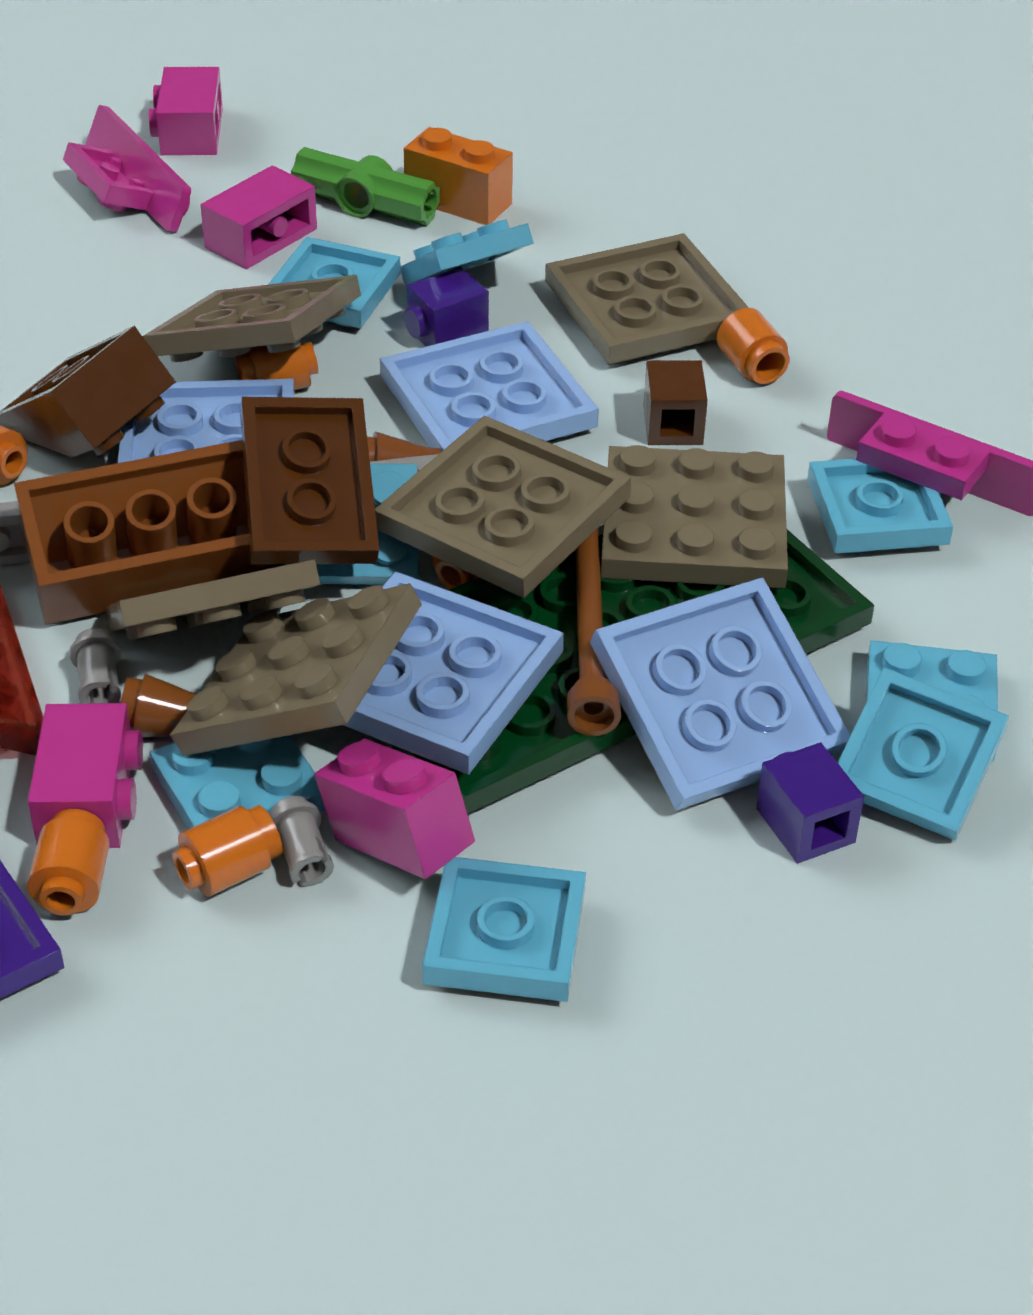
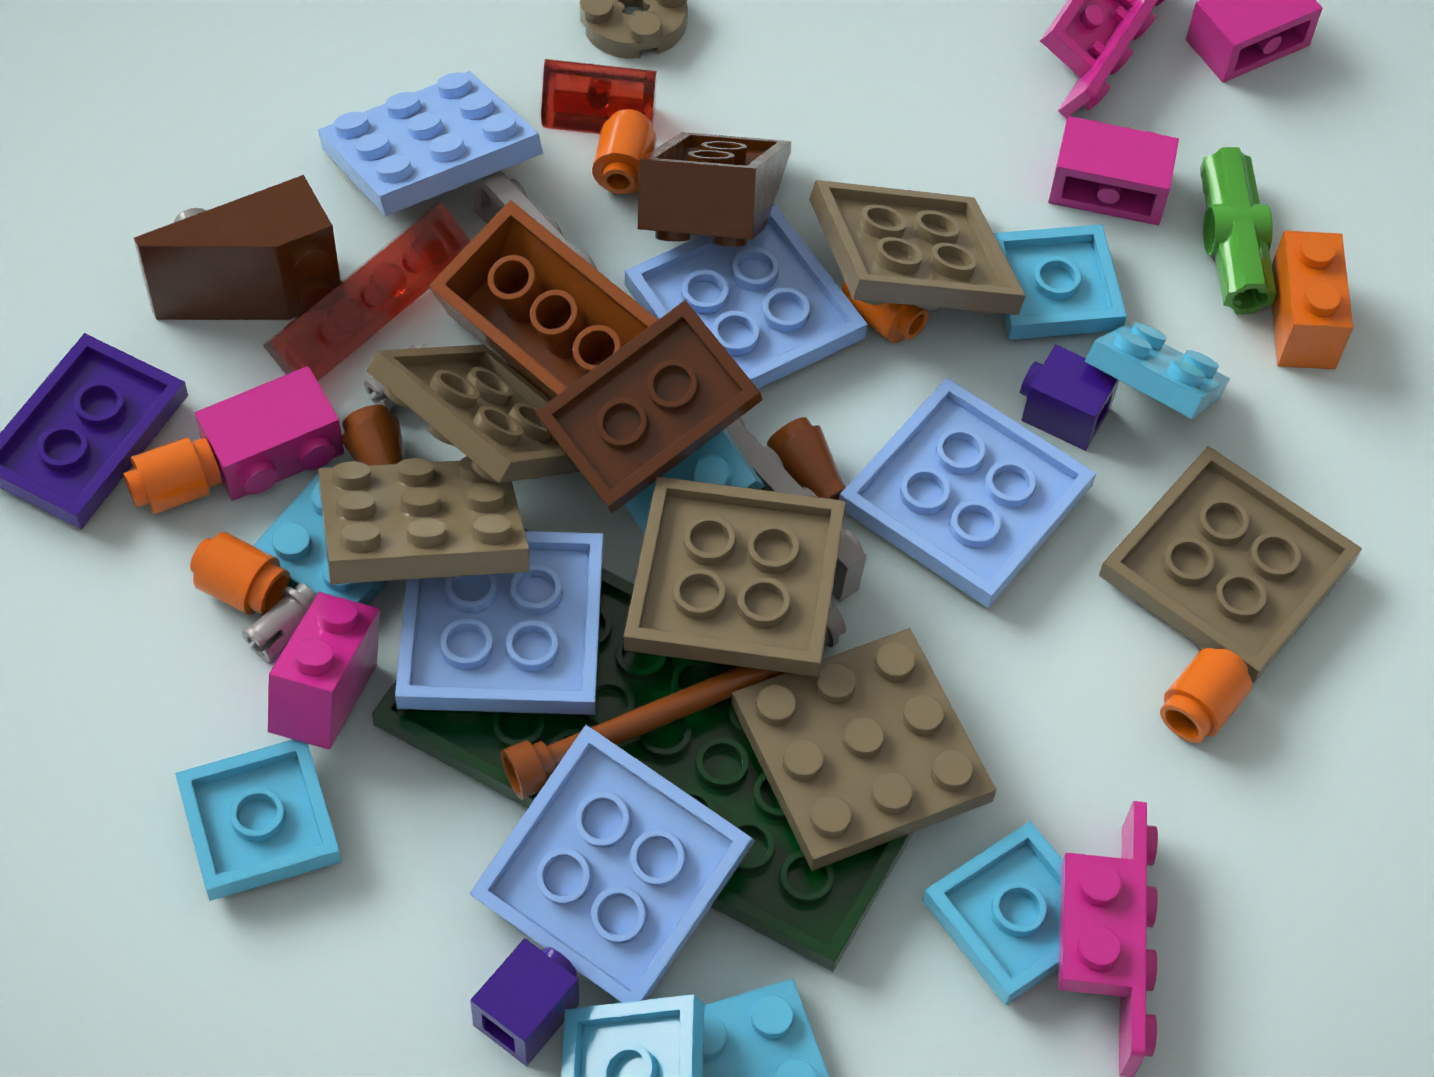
camera: 60 degrees right, 15 degrees up
(675, 402) = (1055, 658): reddish brown brick -> none

